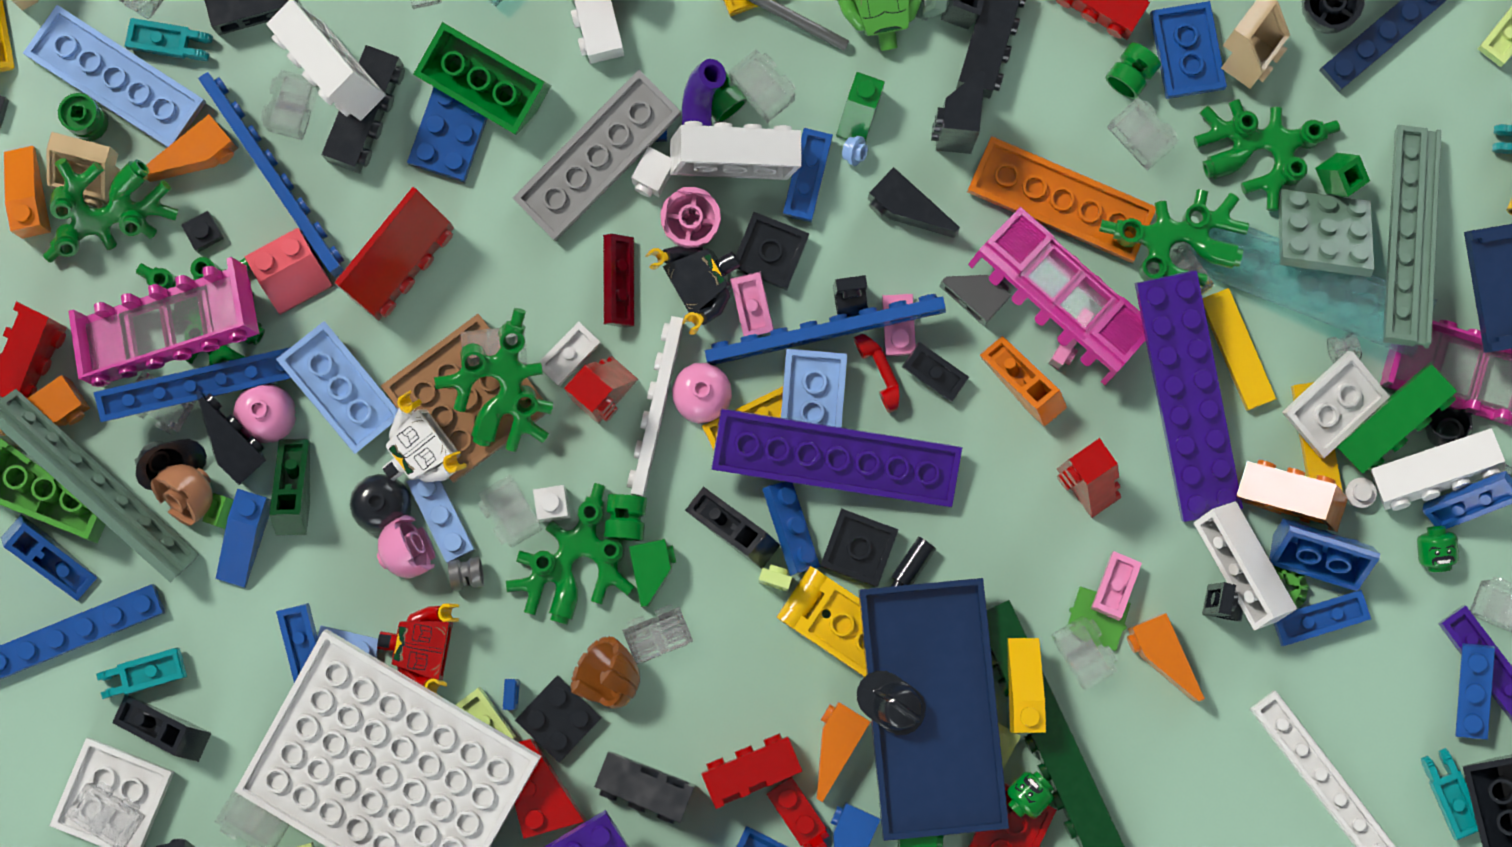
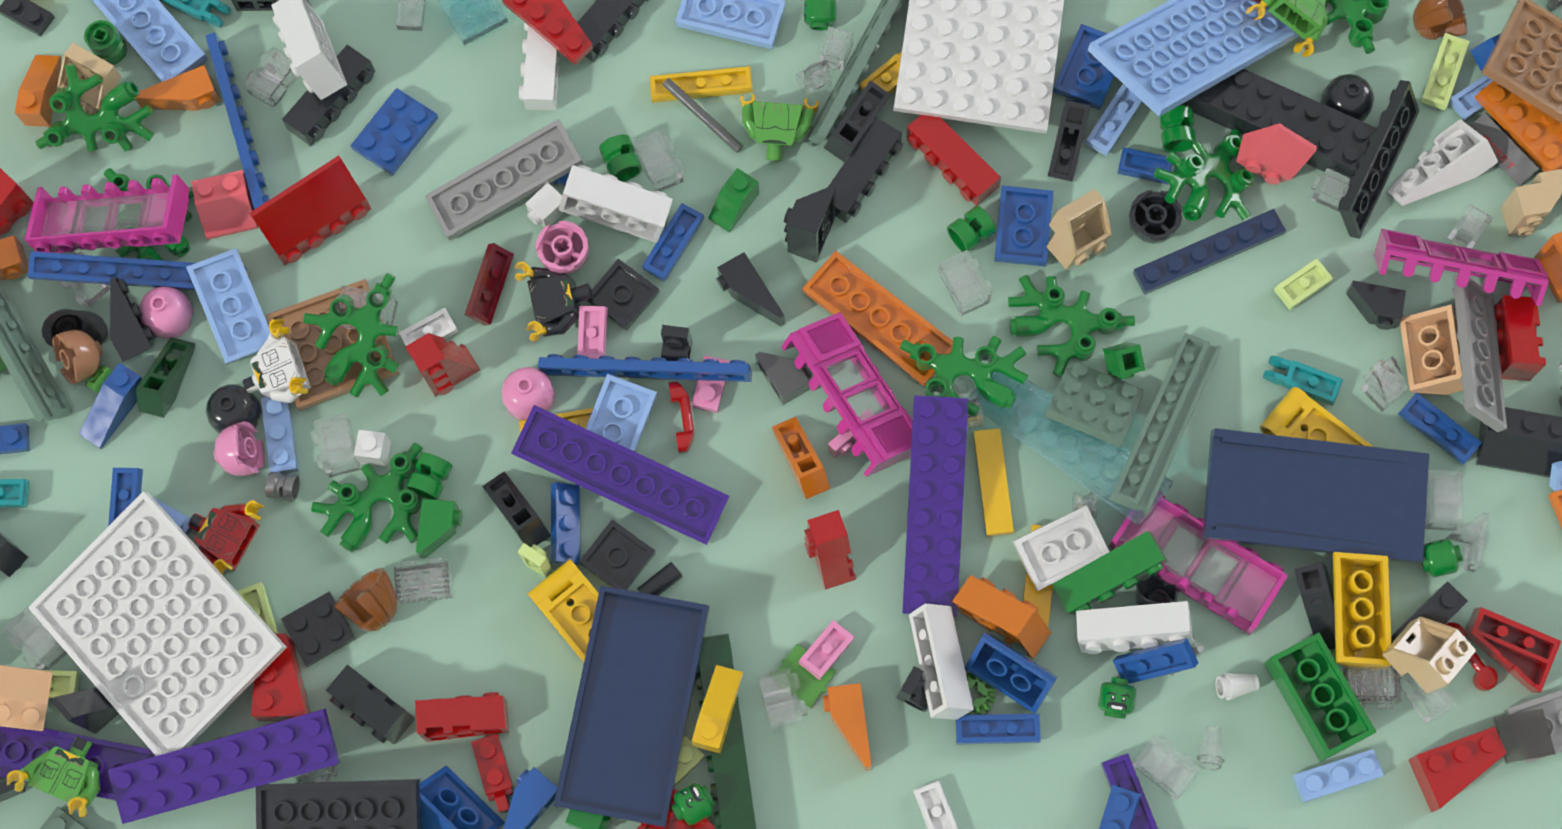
camera: 20 degrees right, 10 degrees down
(202, 231) = (168, 157): black plate -> none
(481, 79) = (431, 95): green slope -> none
(511, 694) = (285, 596): blue tile -> none
(658, 394) = (490, 387): white plate -> none
(700, 91) = (603, 145): dark purple cylinder -> none
(838, 740) = (545, 715): orange slope -> none
(855, 150) = (718, 232): light blue plate -> none
(891, 702) = (597, 688): black piece -> none
(935, 372) = (727, 429): black plate -> none
(1361, 492) = (1064, 631): white plate -> none

